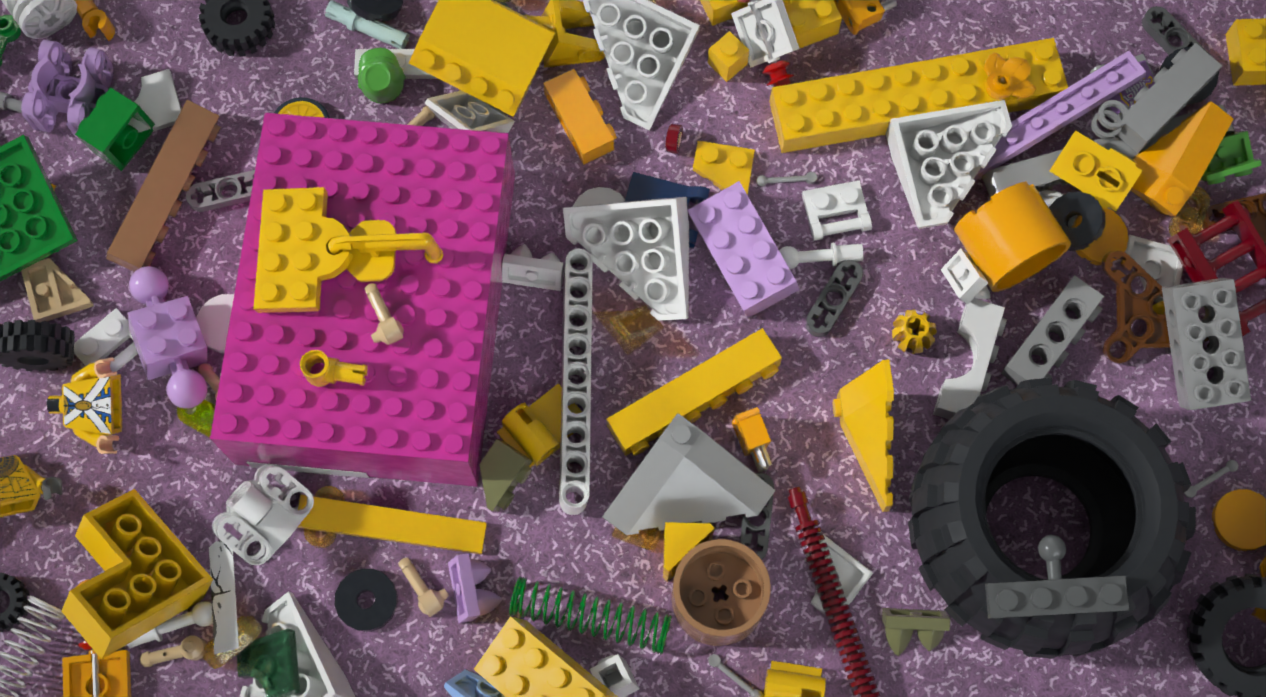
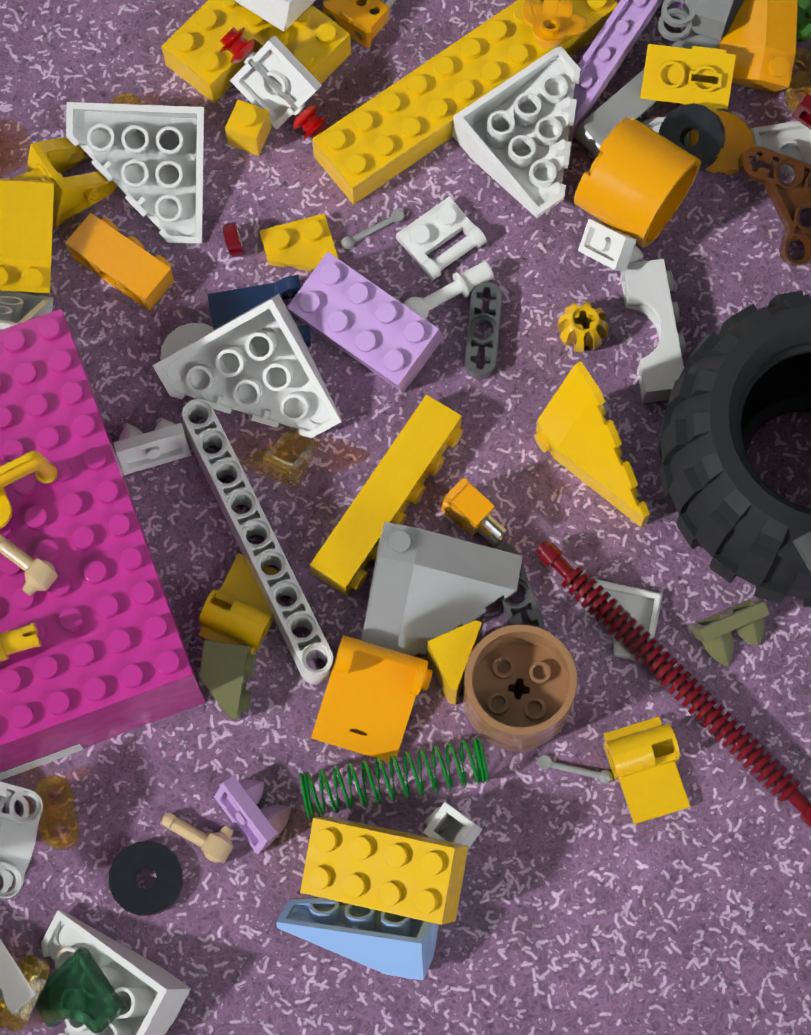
camera: 25 degrees left, 0 degrees up
(394, 525) = (137, 784): yellow tile -> none
(601, 545) = (369, 698): none -> light orange door
(1075, 297) = (734, 216): light grey brick -> none

